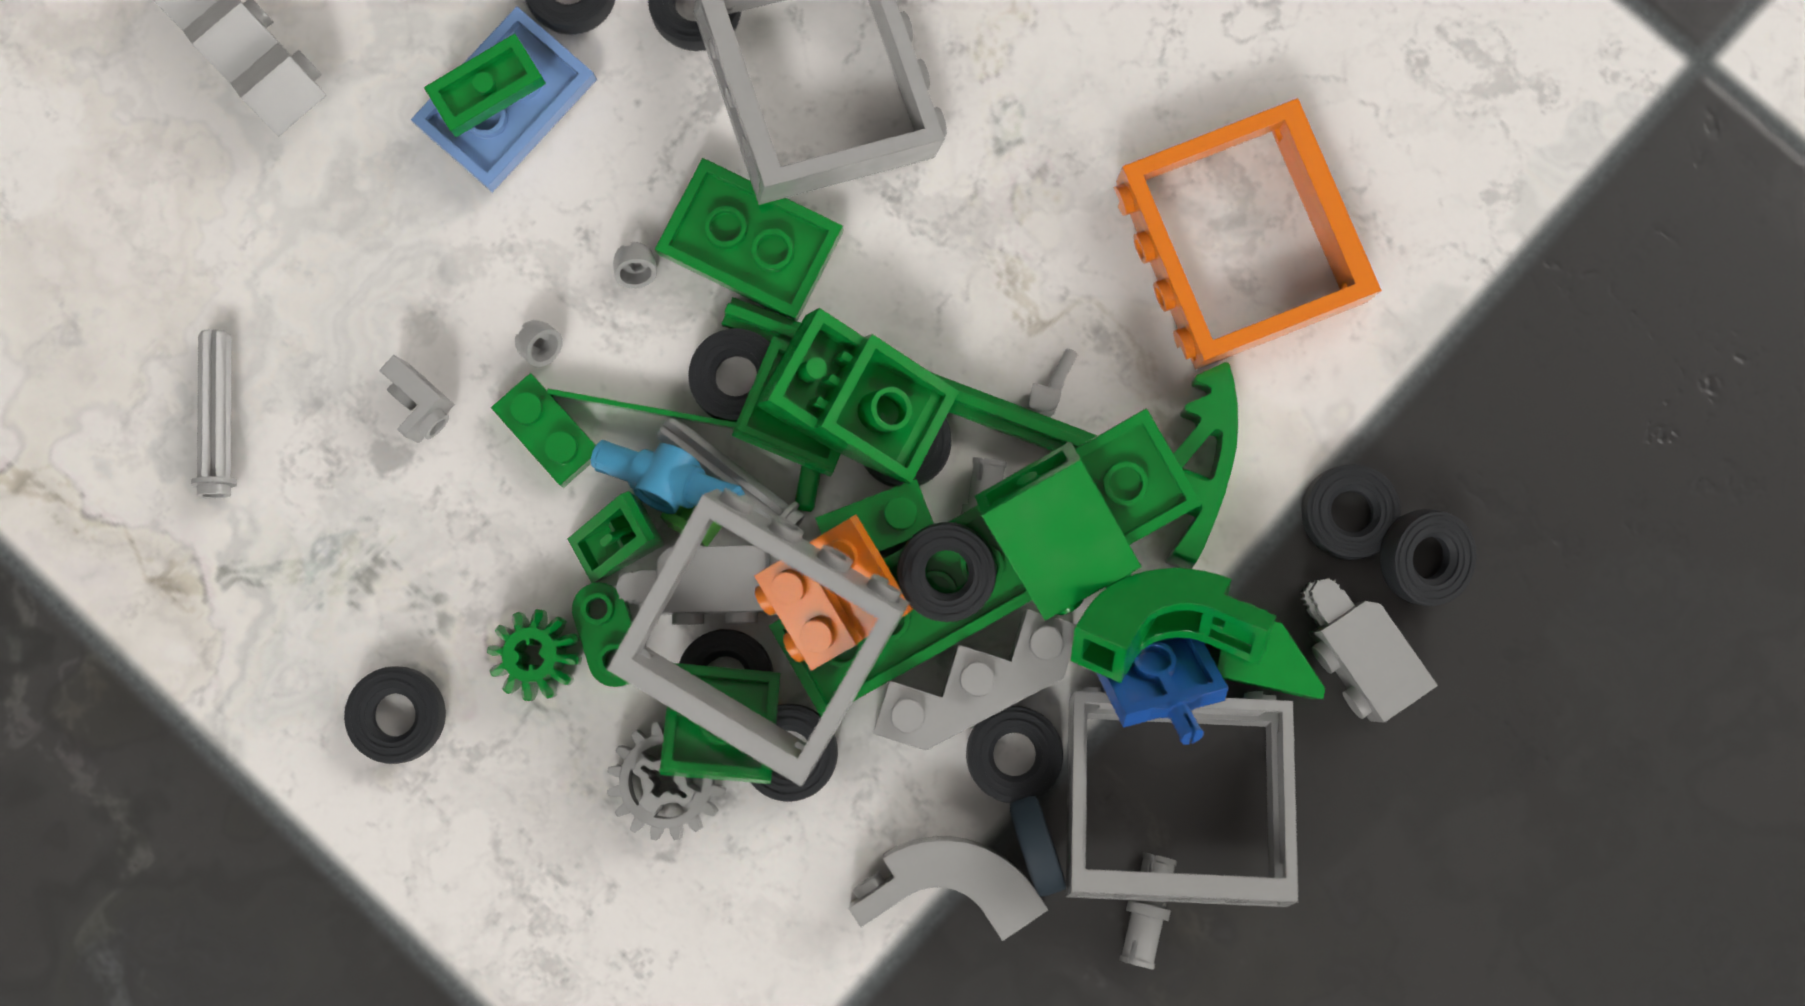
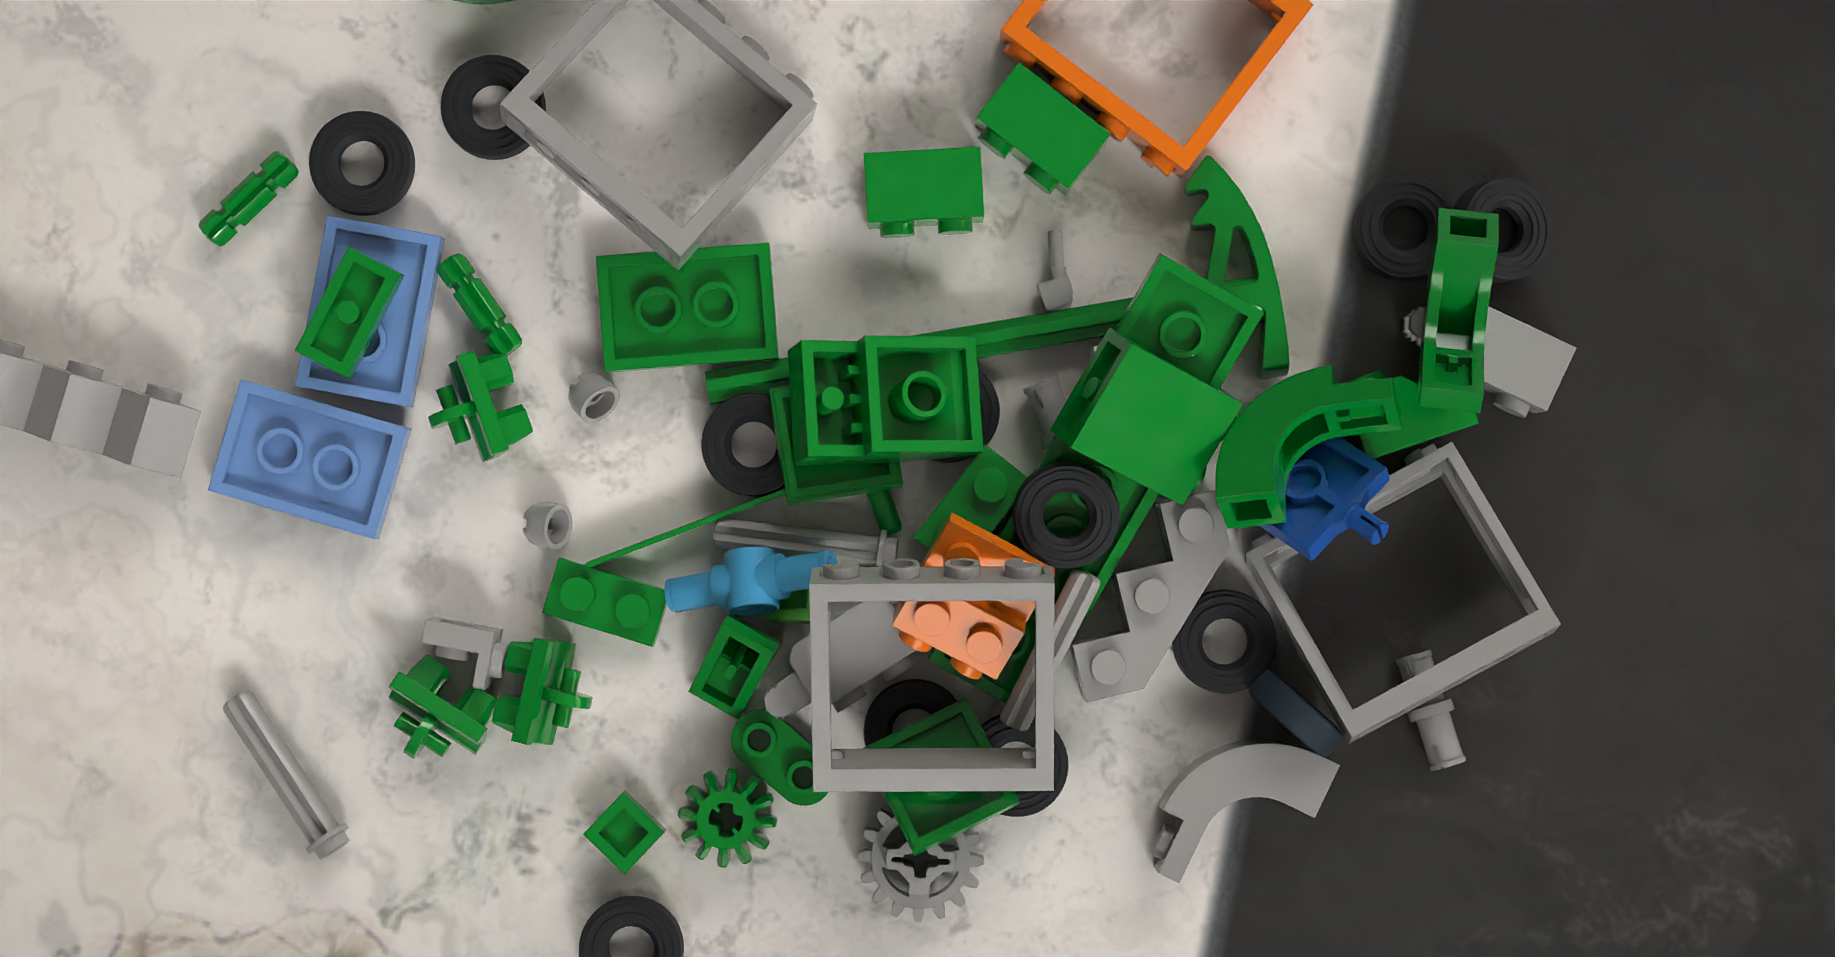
camera: 30 degrees left, 5 degrees up
(355, 413) = (419, 695): none -> green hips
(387, 183) = (309, 459): none -> medium blue plate
(447, 618) = (624, 832): none -> green plate
(453, 469) = (546, 694): none -> green hips
(551, 198) = (474, 380): none -> green hips
(591, 145) = (479, 305): none -> green axle
(892, 660) = (1068, 616): none -> light grey axle
(987, 257) = (924, 190): none -> green brick
(1107, 265) = (1040, 131): none -> green brick
(1360, 594) = (1457, 310): none -> green arch

